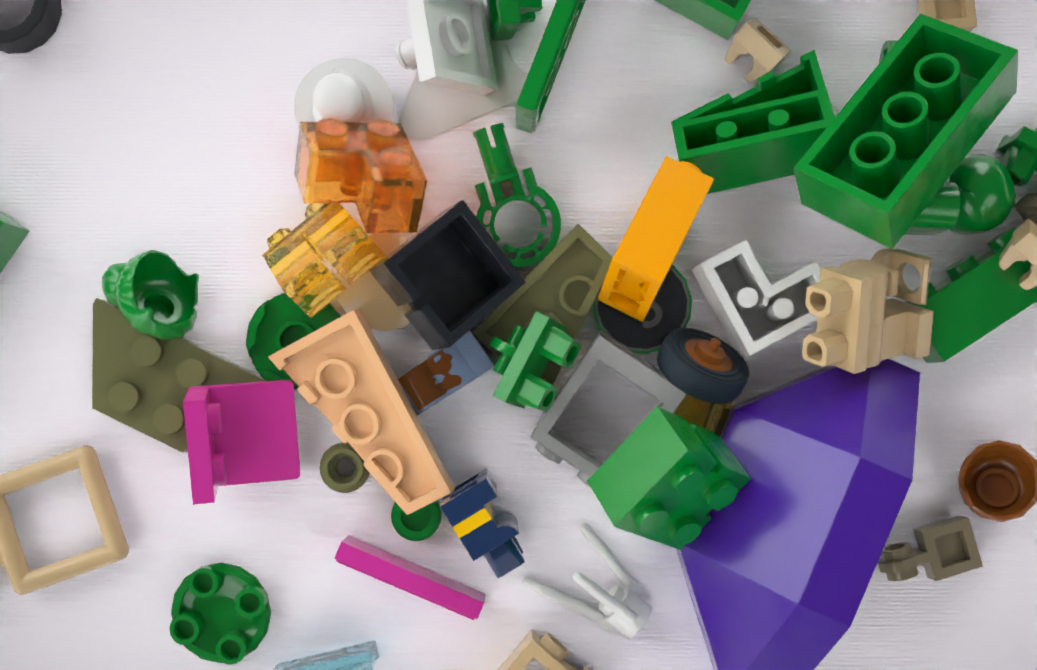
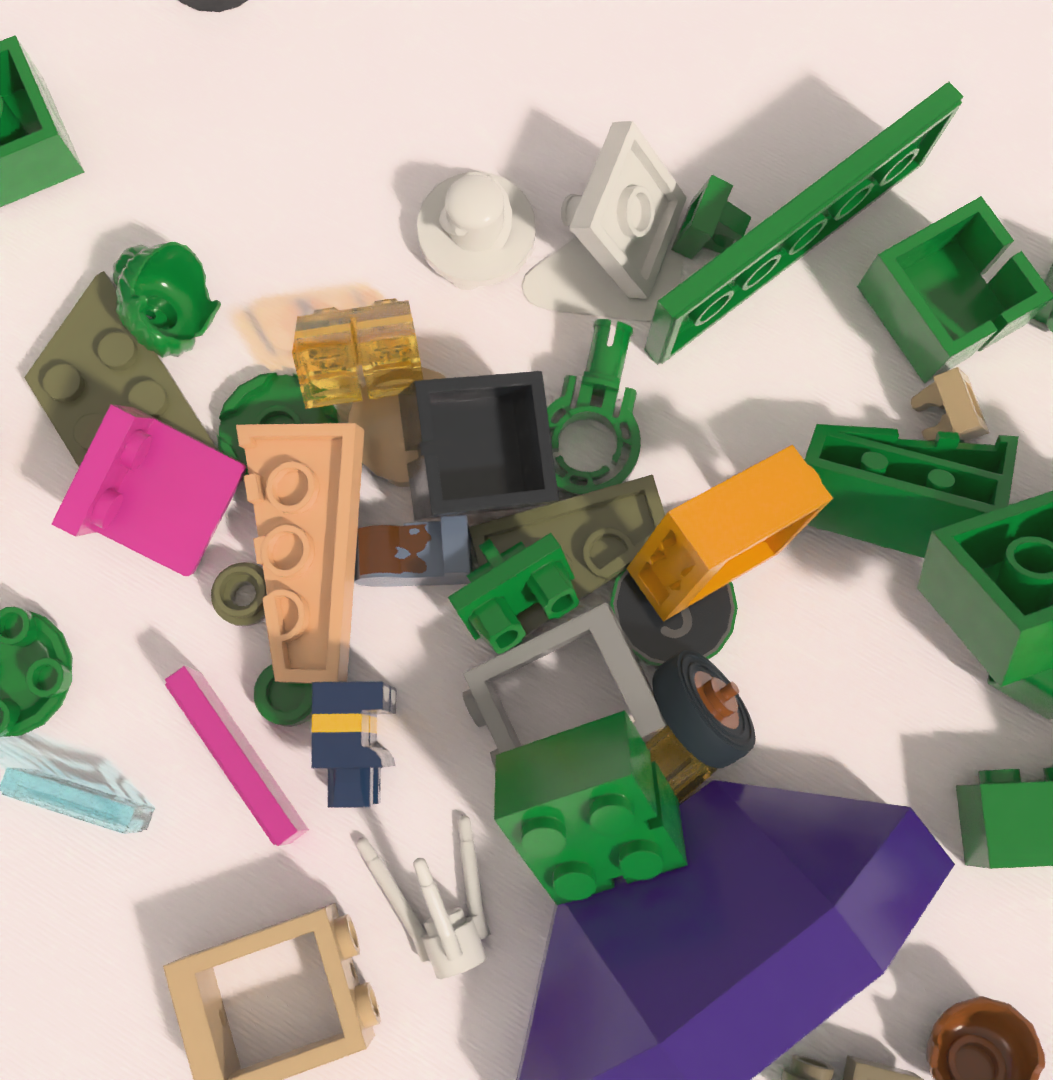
camera: 30 degrees right, 10 degrees down
(362, 166) = (456, 283): clear orange brick -> none
(746, 302) = (799, 682): white brick -> none
(856, 319) = (909, 750): tan hips -> none

